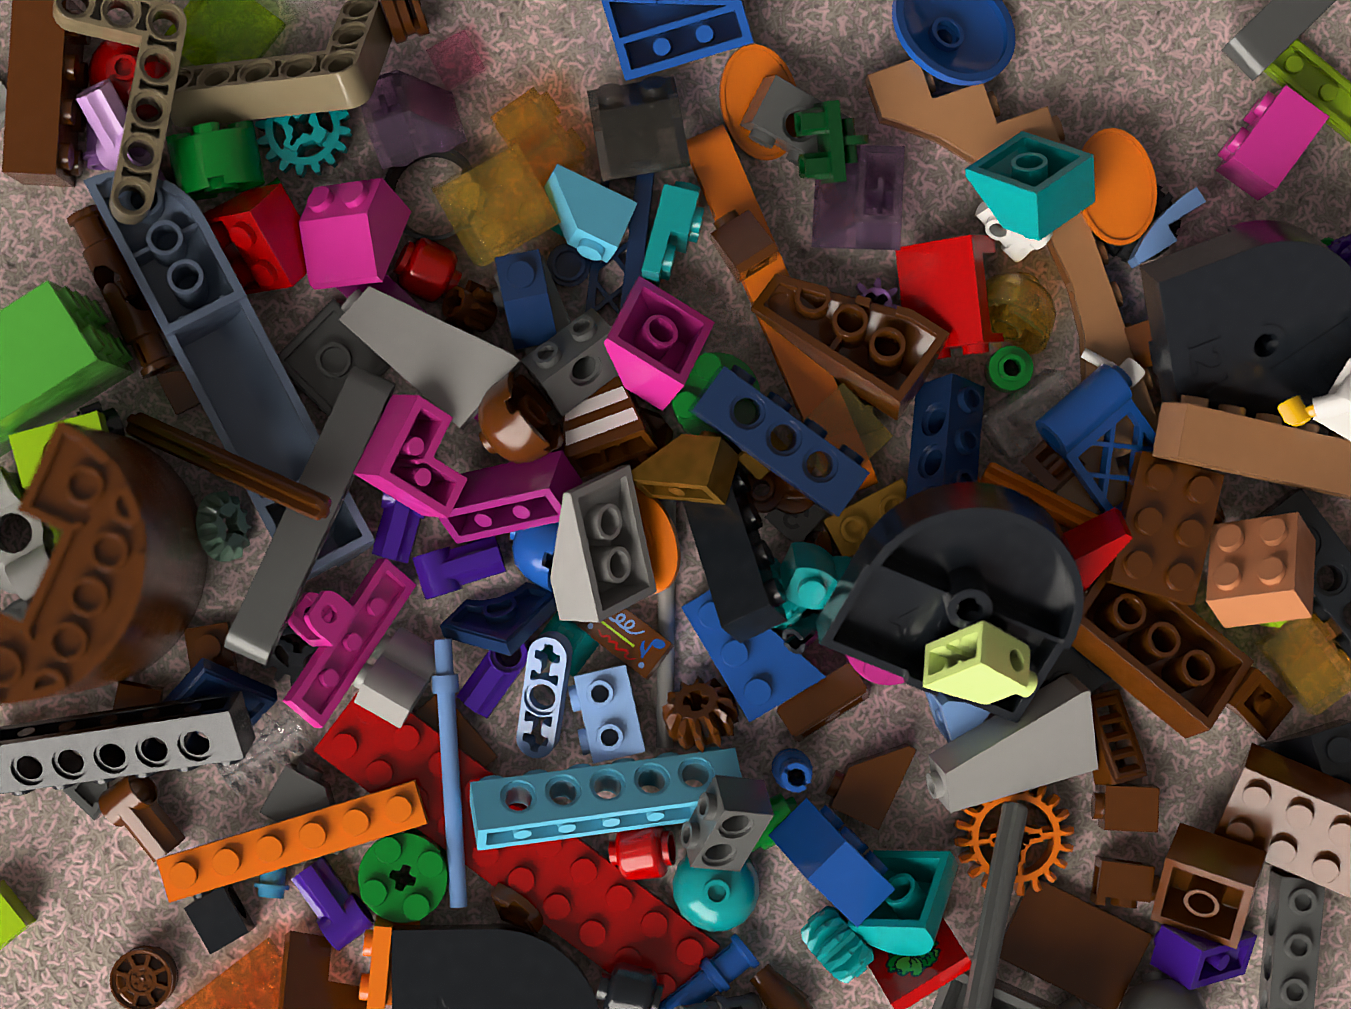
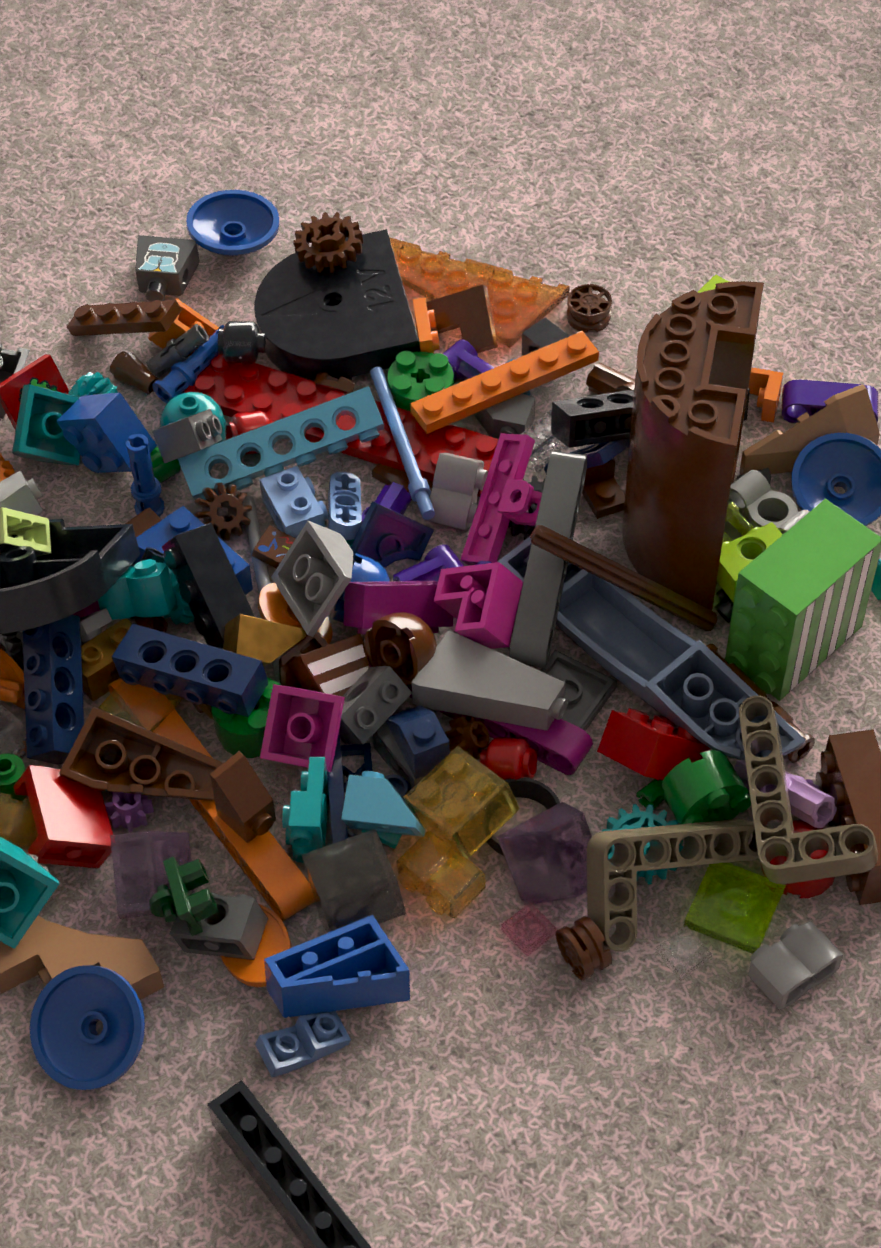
camera: 165 degrees right, 35 degrees down
(212, 529) = (624, 547): sand green gear -> none
(351, 232) = (575, 756): dark pink slope -> none
(870, 784) = (87, 497): reddish brown slope -> none

